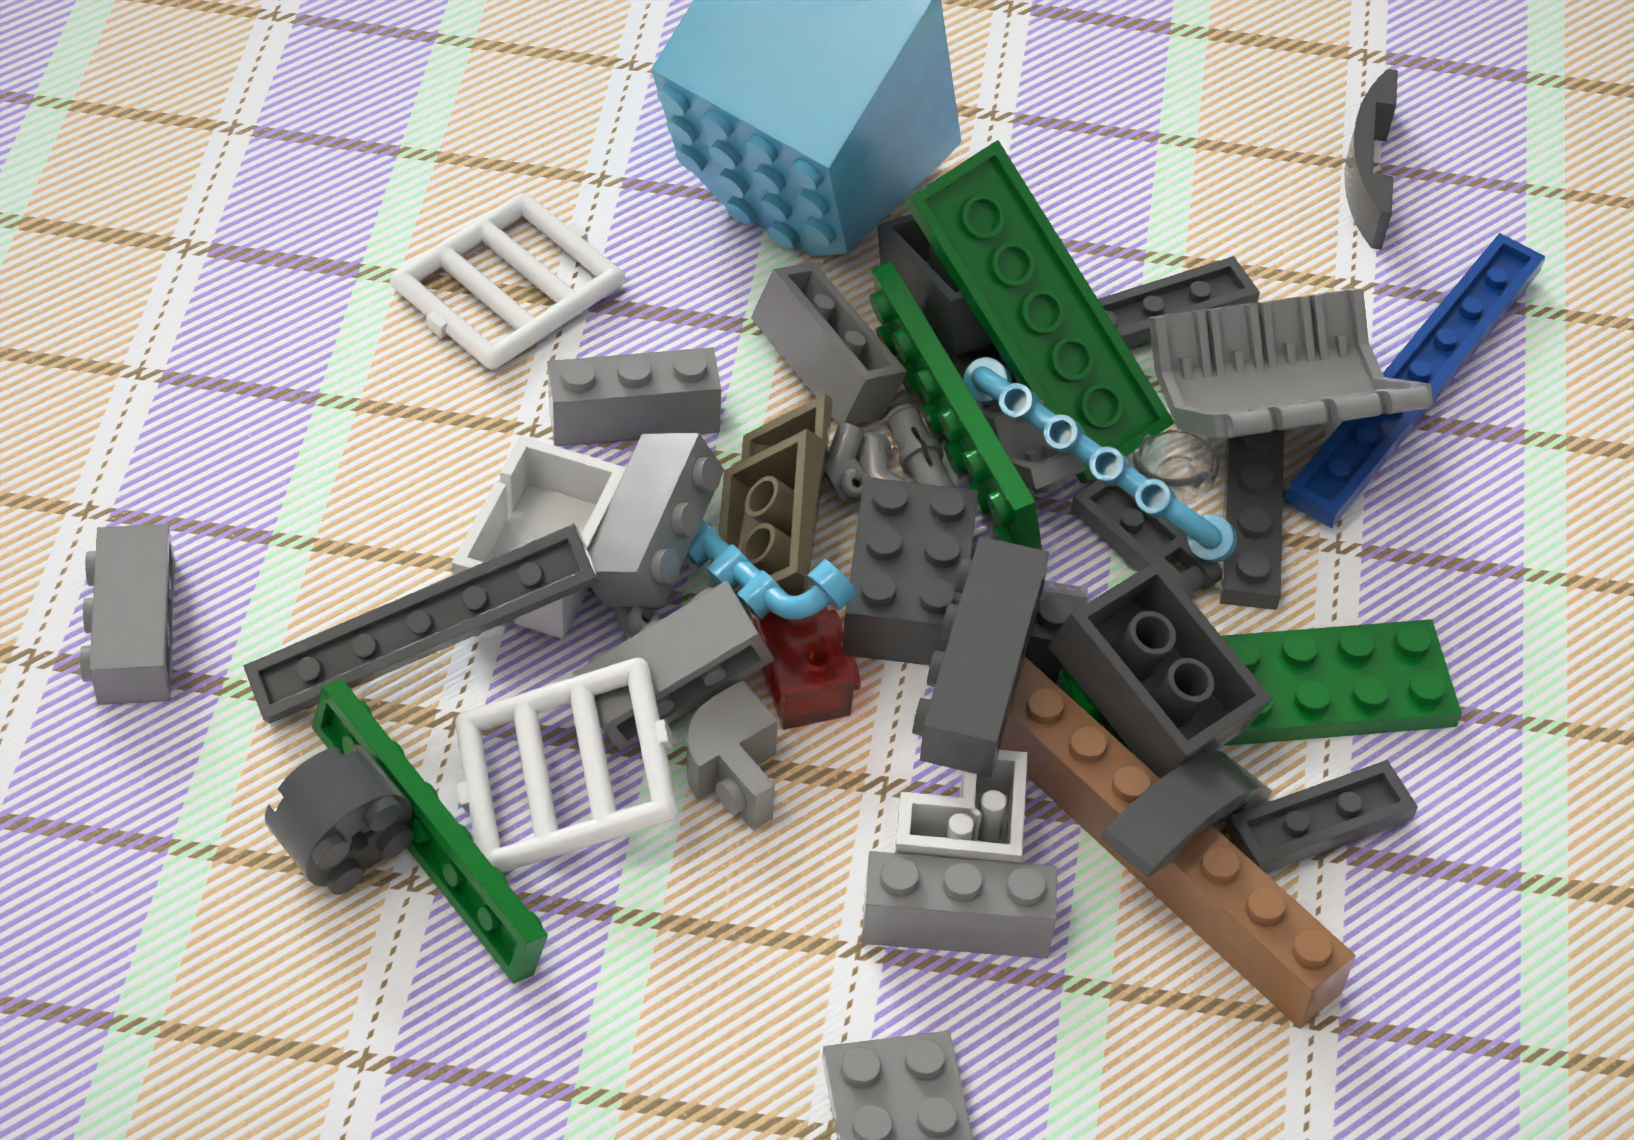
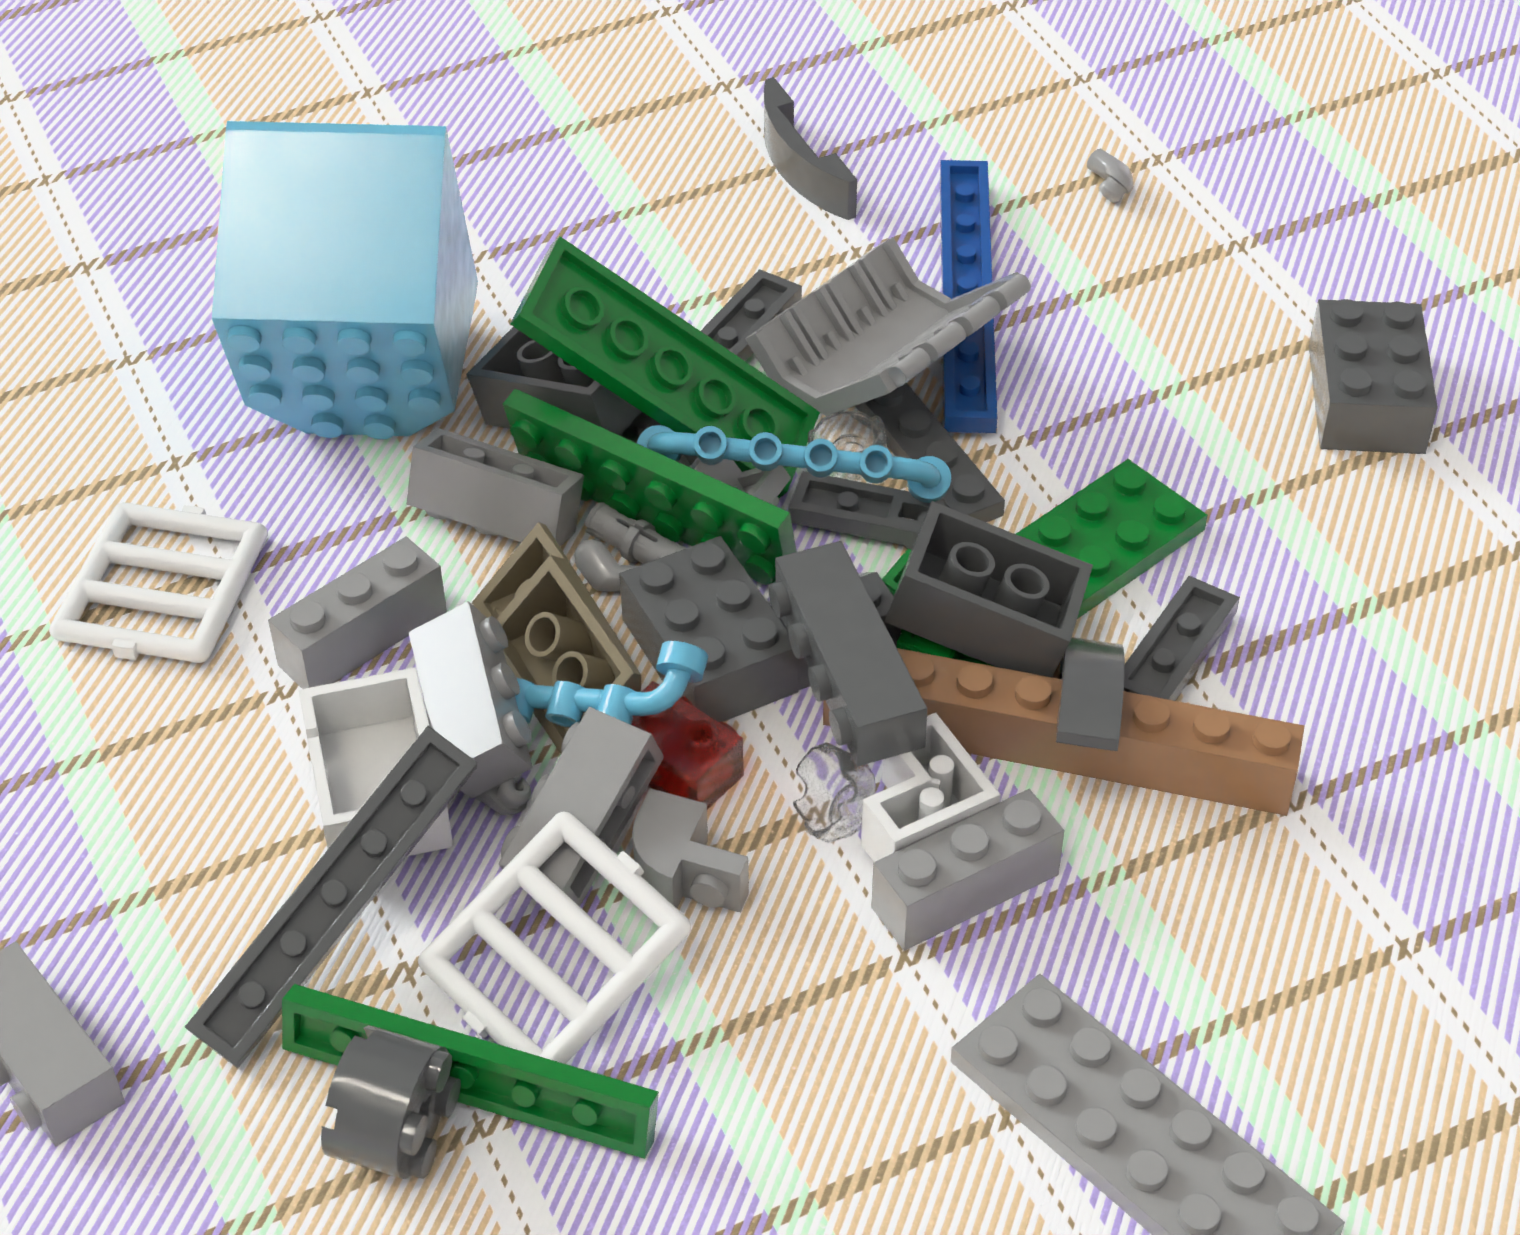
camera: 30 degrees left, 5 degrees down
(841, 463) = (602, 588): light grey arm -> none
(896, 773) = (833, 792): none -> clear hair

